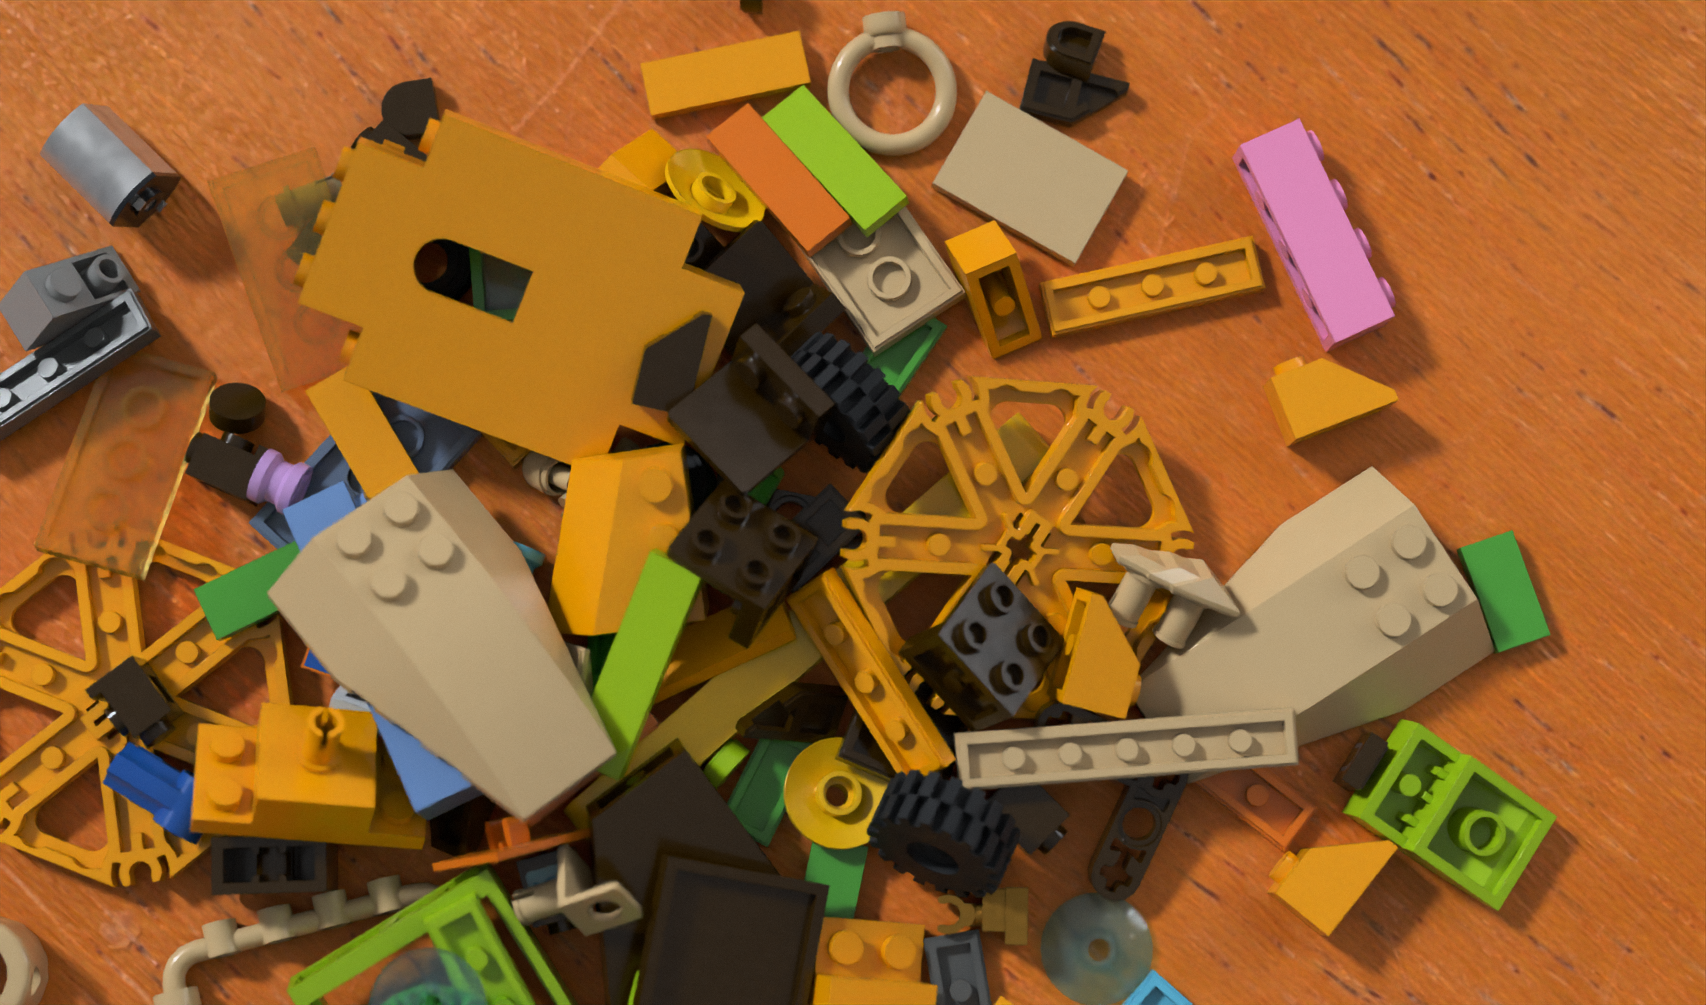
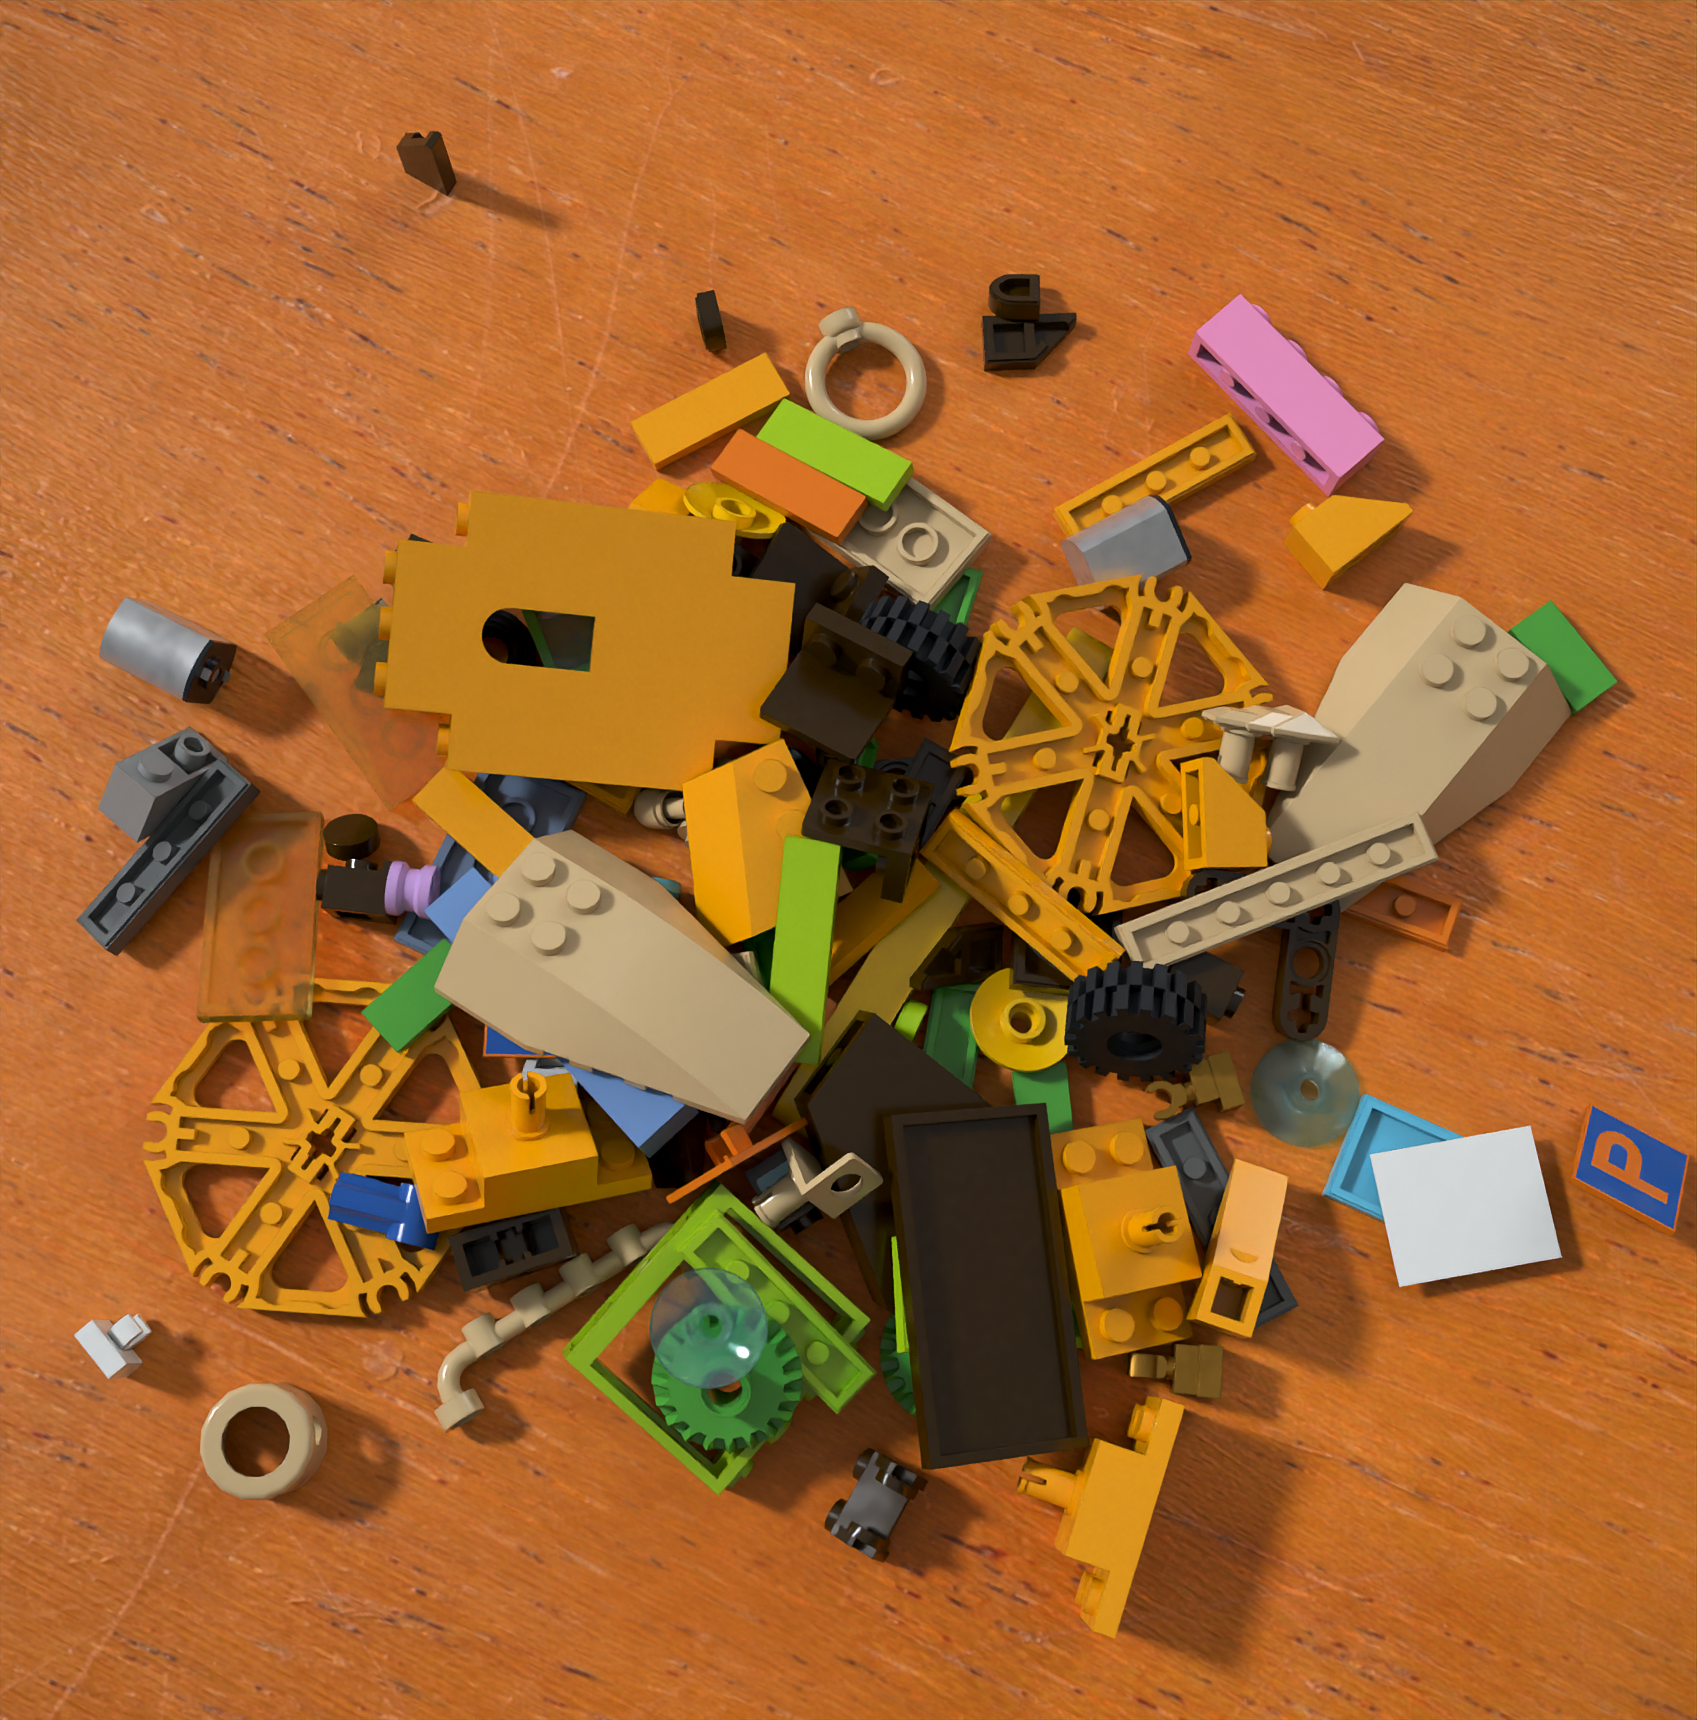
camera: 15 degrees left, 5 degrees down
(137, 701) = (338, 1132): dark brown brick -> none
(410, 107) = (433, 520): dark brown tile -> none
(671, 365) = (748, 667): dark brown tile -> none
(985, 651) = (1120, 844): dark brown bracket -> none
(994, 288) = (1018, 523): light orange slope -> none
(1029, 178) = (1014, 422): tan tile -> none
(1098, 348) = (1128, 543): none -> flat silver piece
(1327, 880) = (1496, 963): light orange slope -> none
(1361, 762) = (1489, 845): dark brown tile -> none
(1450, 814) = (1584, 868): lime slope -> none

